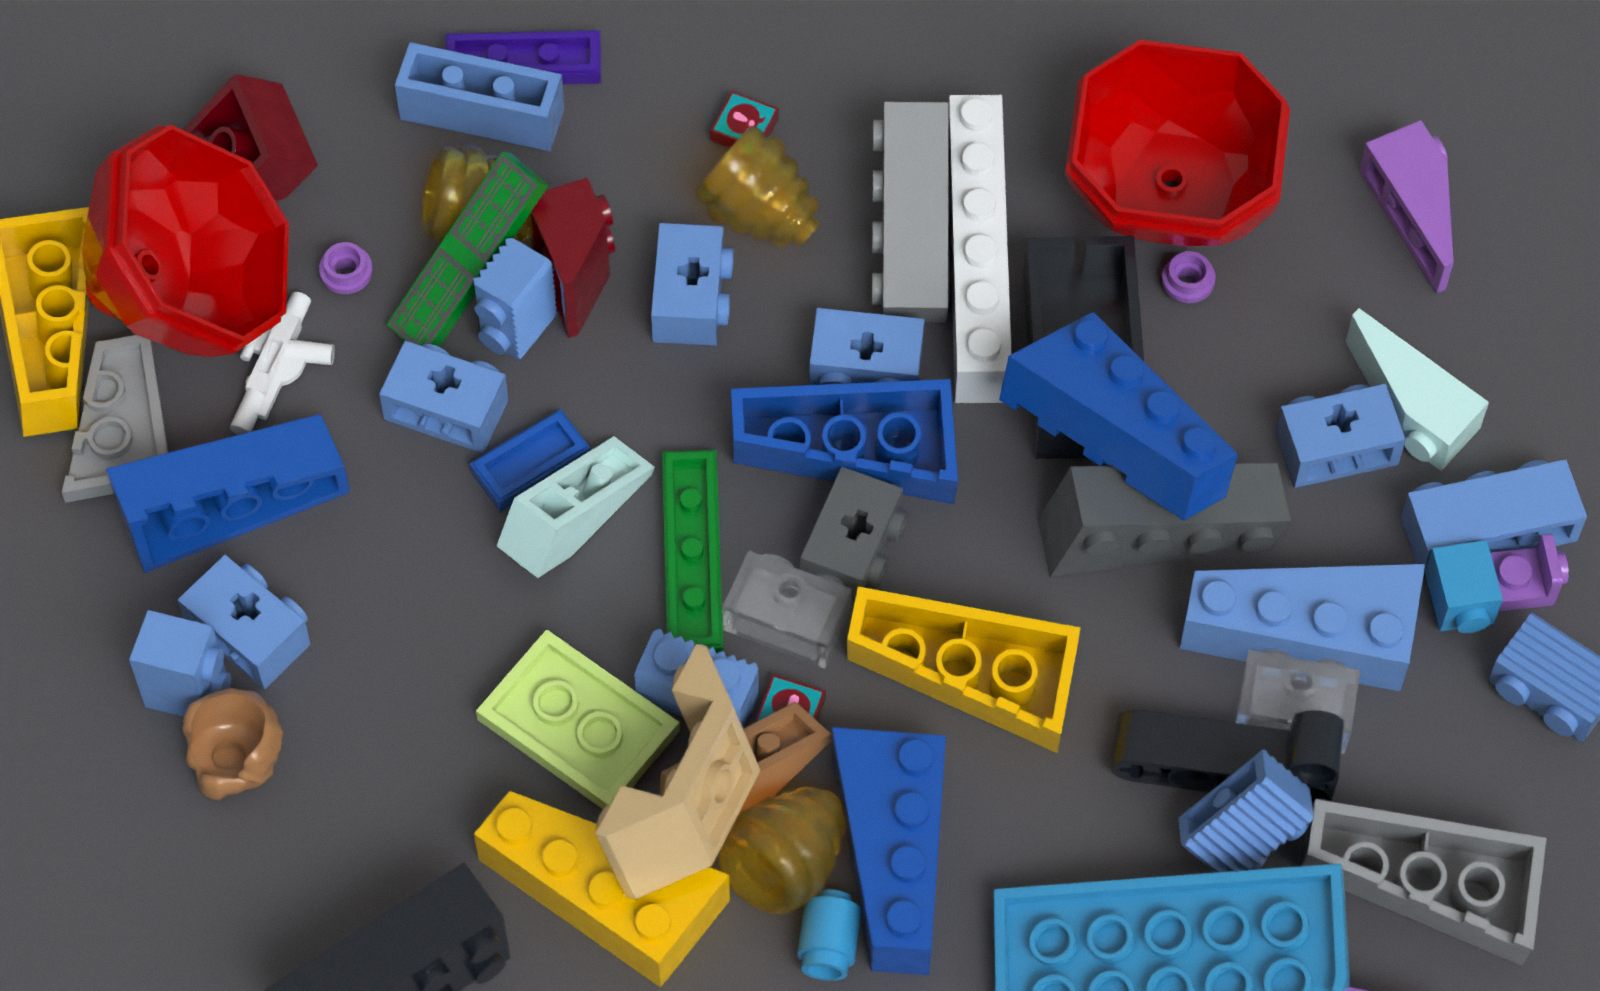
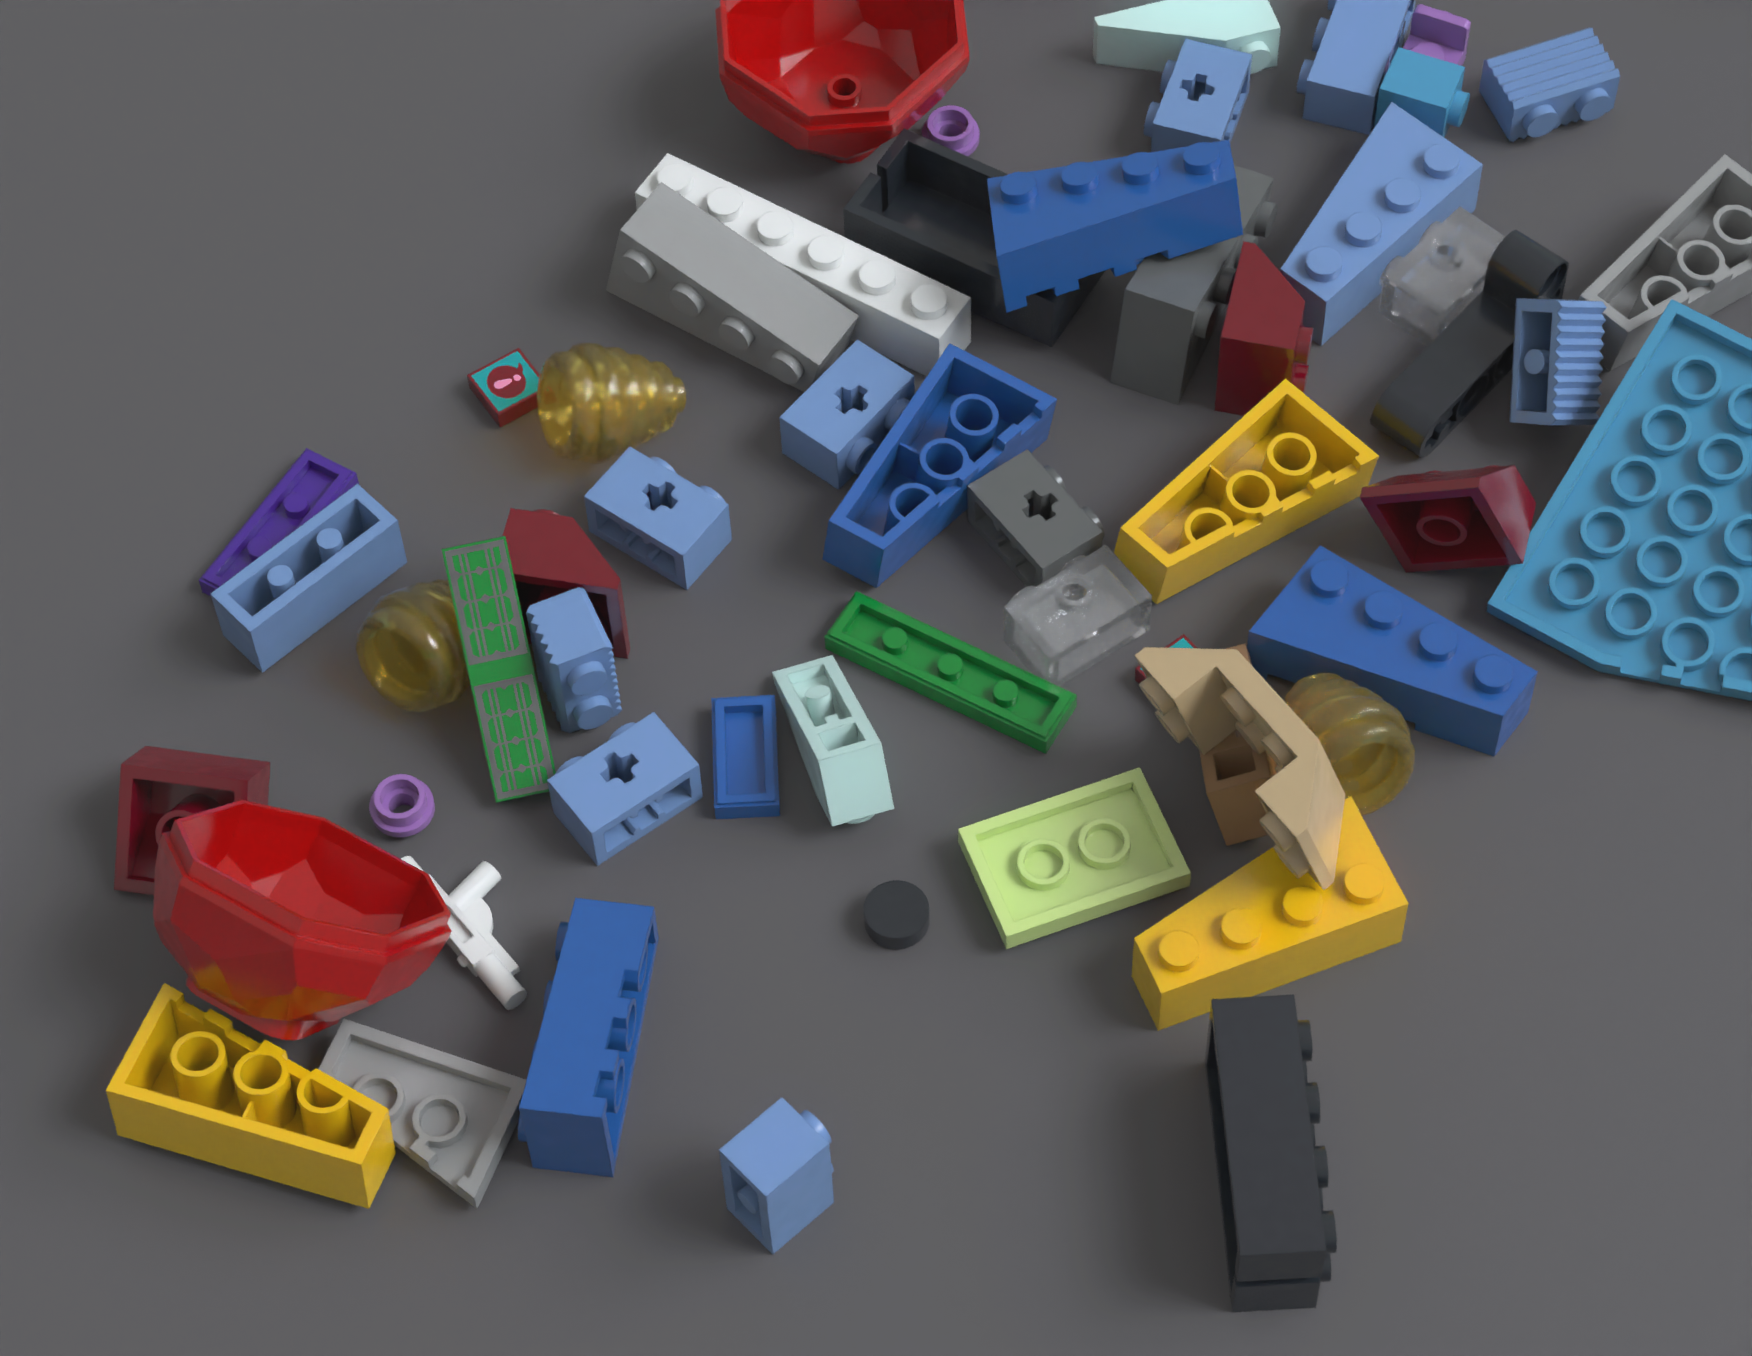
camera: 55 degrees left, 5 degrees down
(231, 741) = (895, 1175): medium nougat hair -> none
(249, 621) = (717, 1084): medium blue brick -> none
(459, 631) = (896, 914): none -> black tile
(665, 655) = (1101, 732): medium blue brick -> none
(829, 935) = (1452, 761): dark azure brick -> none
(1046, 815) = (1453, 517): none -> dark red slope
(1117, 591) = (1260, 335): none -> dark red slope

